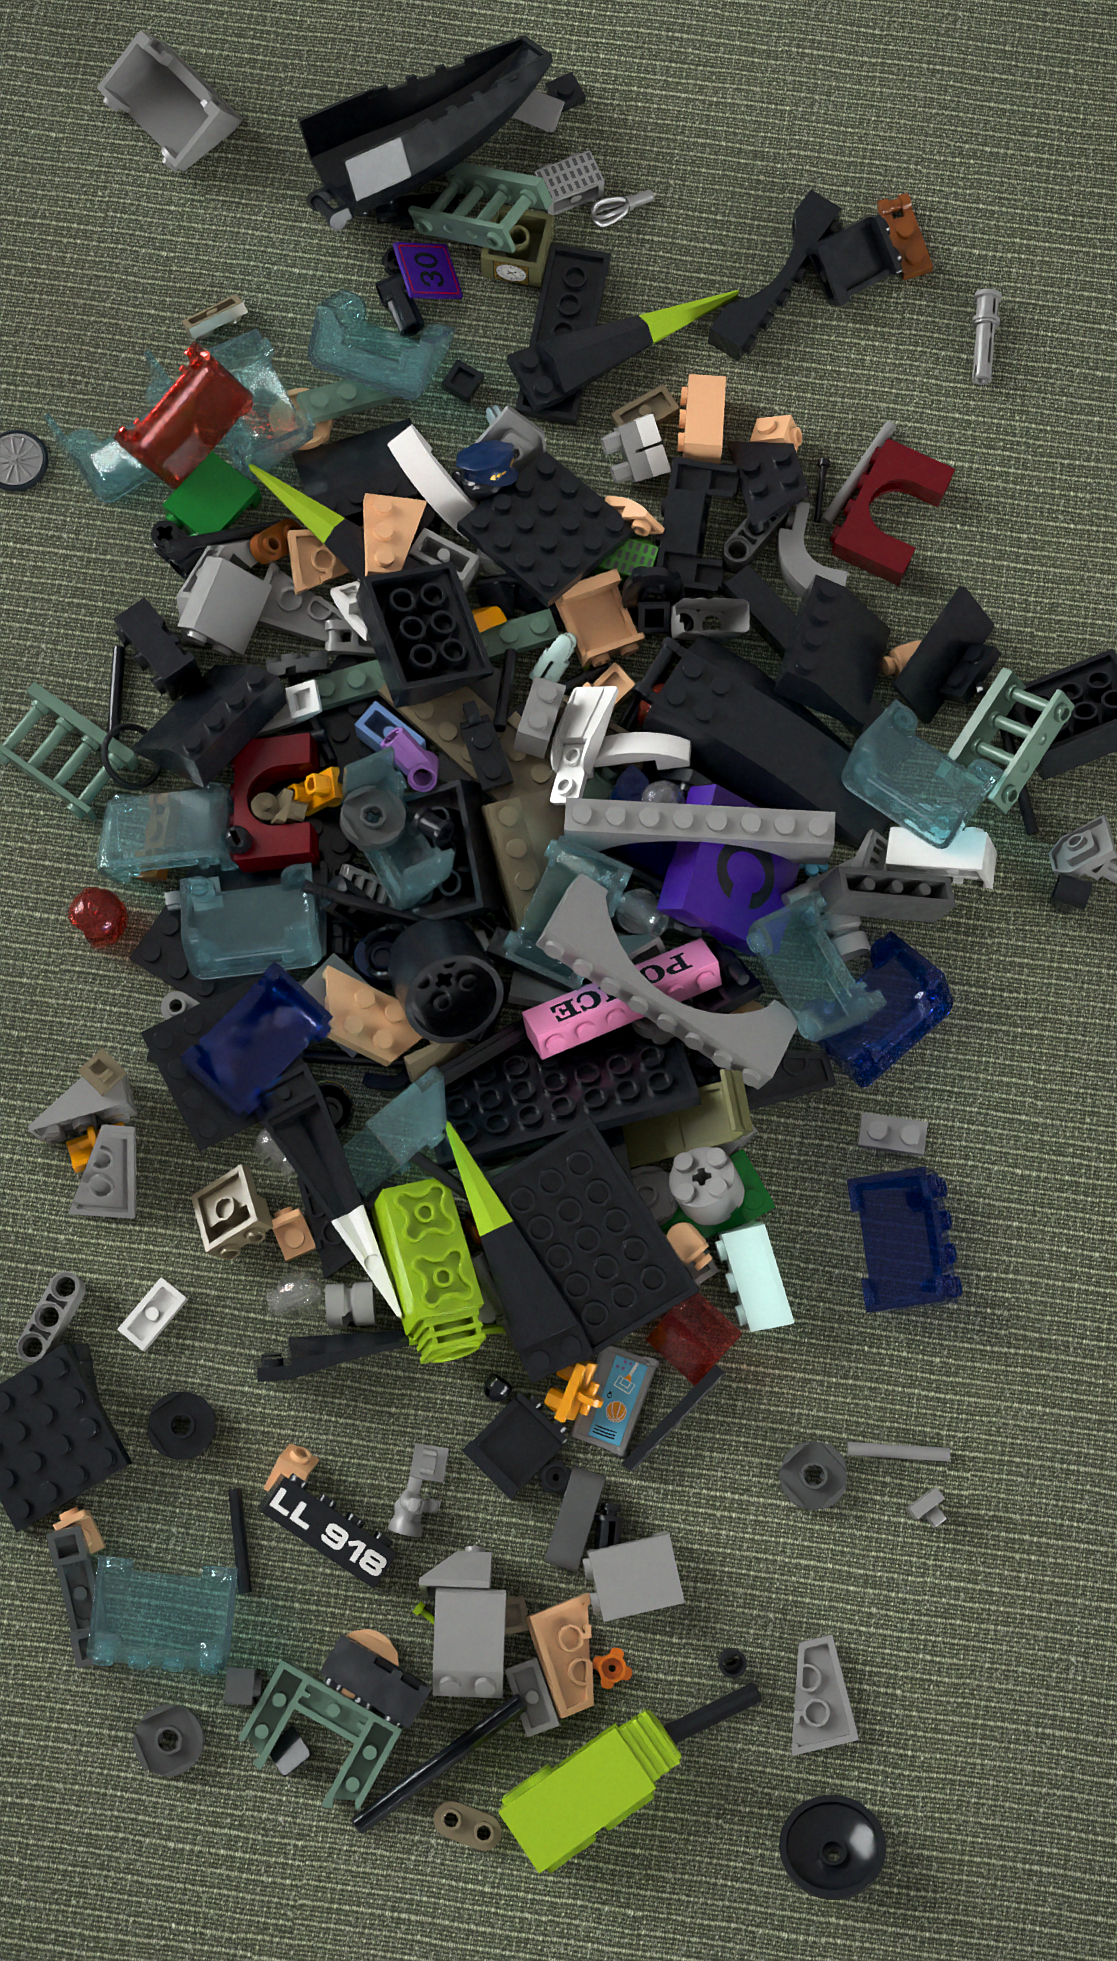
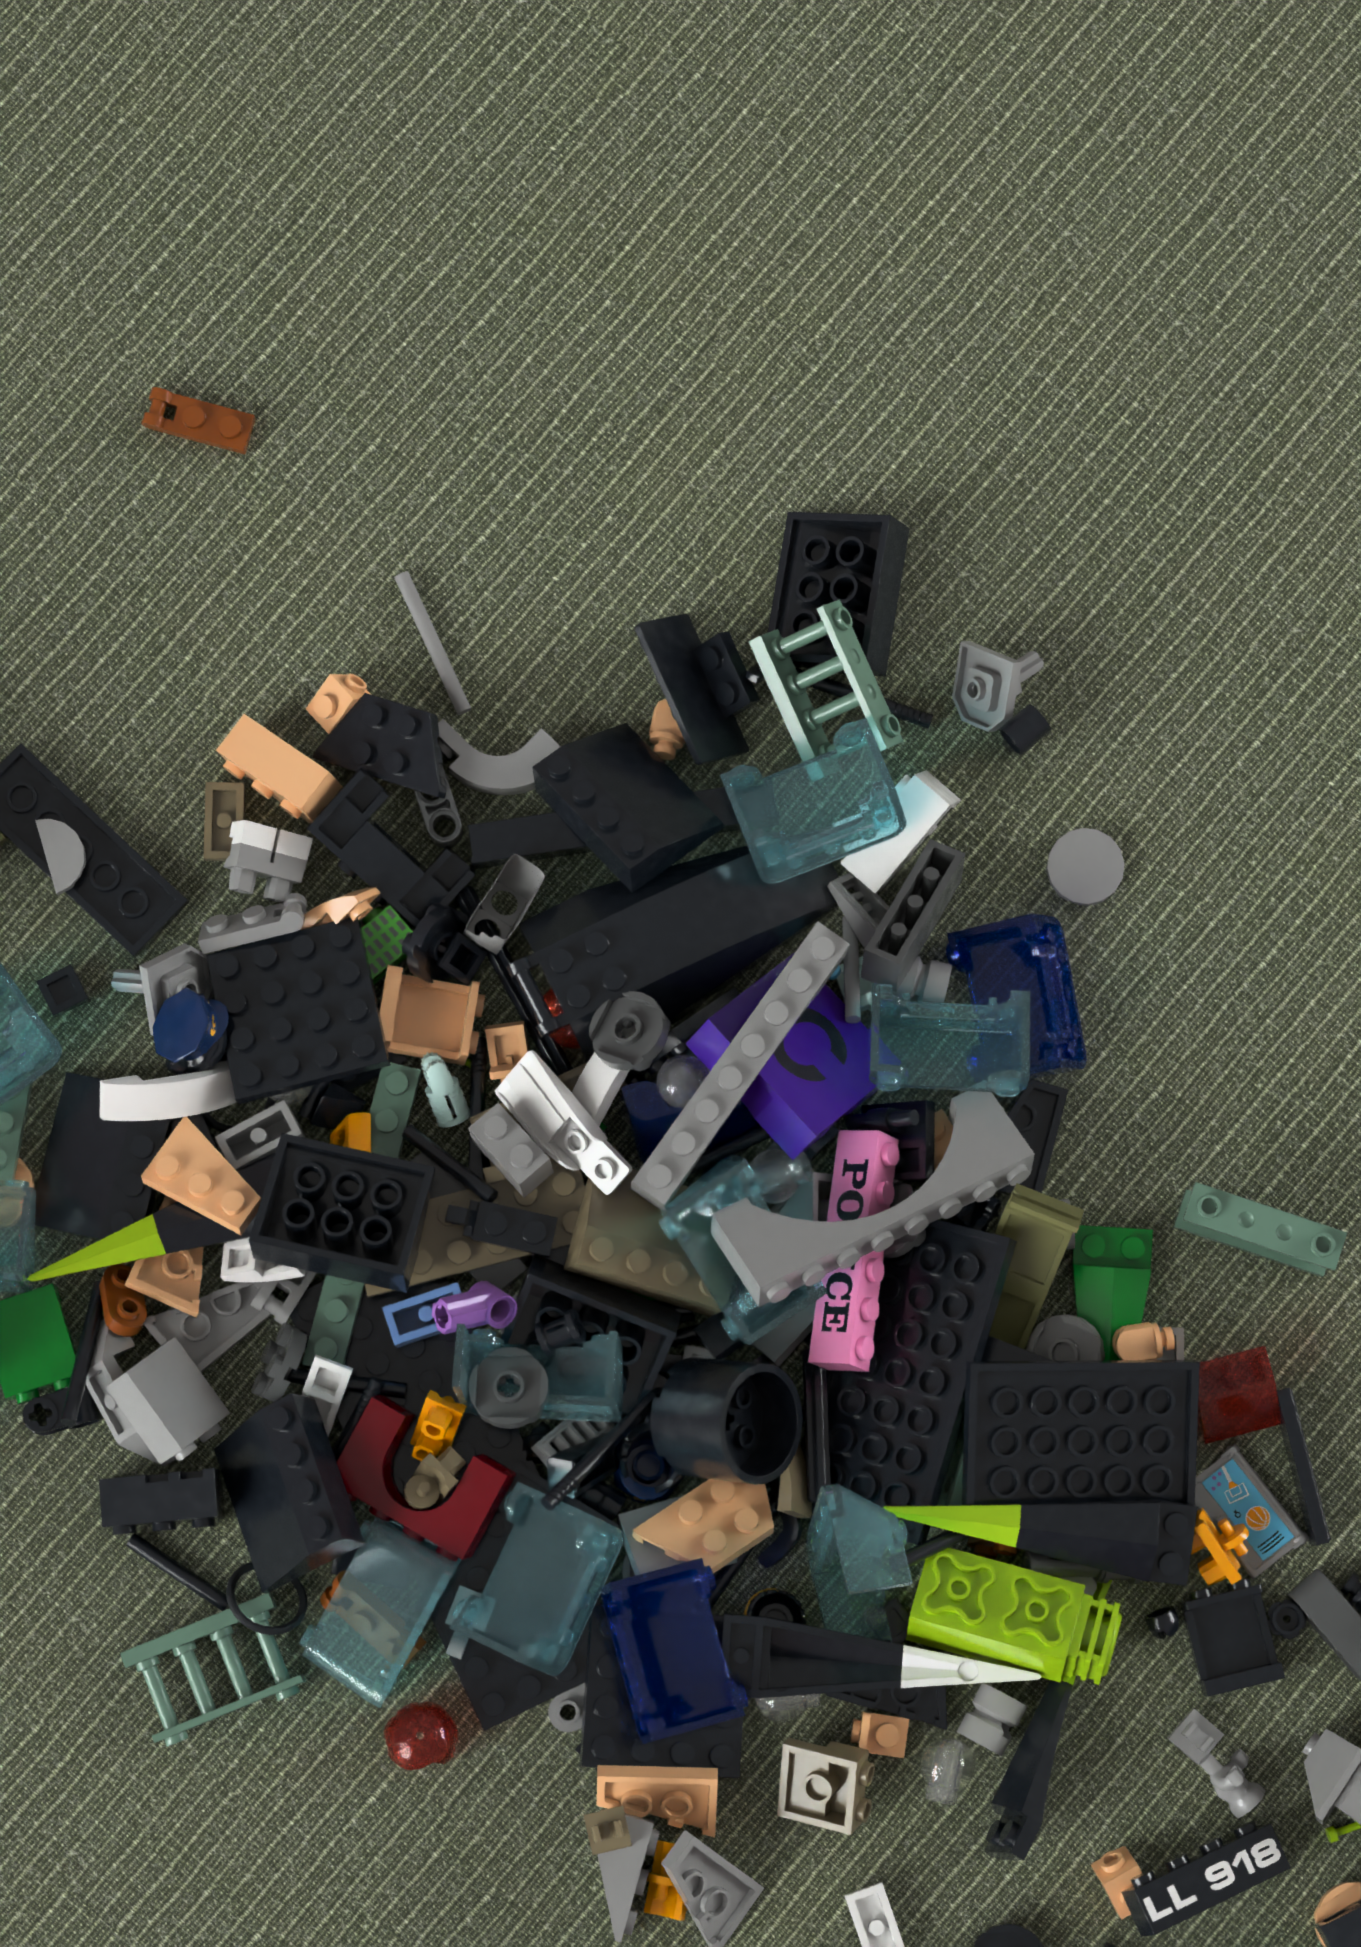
camera: 60 degrees left, 5 degrees up
(160, 1107) = (671, 1793): none -> light nougat wing
(243, 834) = (444, 1533): black hinge -> none
(554, 321) = (63, 853): none -> light grey tile
(571, 361) = (120, 865): black plate -> none
(586, 467) = (253, 924): none -> light grey plate
(602, 783) = (619, 1132): sand green arm -> none
(663, 753) = (640, 1048): none -> dark grey plate
(706, 1185) = (1076, 1292): light grey brick -> none
(741, 322) = (128, 516): black arch -> none
(754, 1277) = (1214, 1297): light aqua slope -> none
(823, 464) = (399, 672): black piece -> none
(824, 1278) = (1260, 1229): none -> sand green fence
(854, 258) = (196, 493): black panel -> none
(892, 1134) = (1150, 1065): light grey plate -> none
(893, 470) = (506, 691): dark red arch -> none
(905, 1240) = (1268, 1124): clear blue windscreen -> none
(985, 323) = (354, 403): light grey pin -> none
(1003, 1001) = (1085, 866): none -> light grey tile

